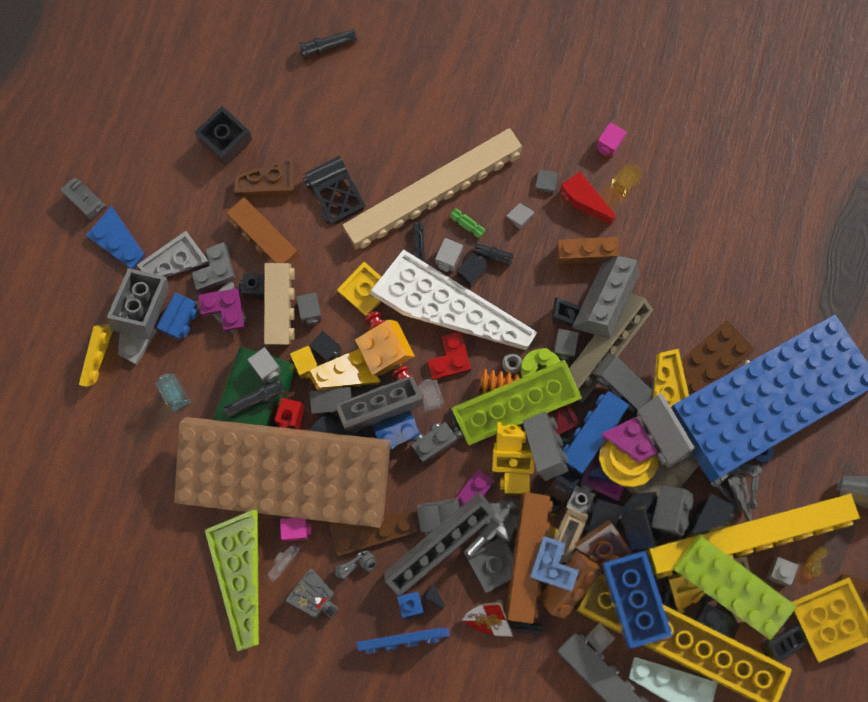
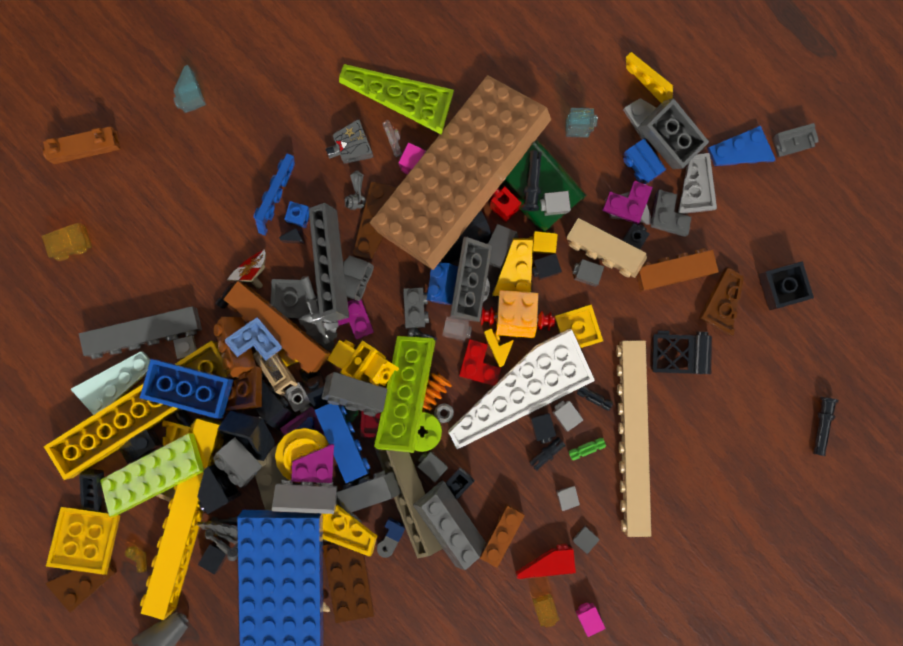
camera: 115 degrees right, 10 degrees up
(427, 344) = (499, 352): none -> yellow slope
(650, 343) = (388, 544): none -> leg
(770, 490) = (213, 558): none -> black brick
(782, 571) = (144, 524): light grey brick -> none

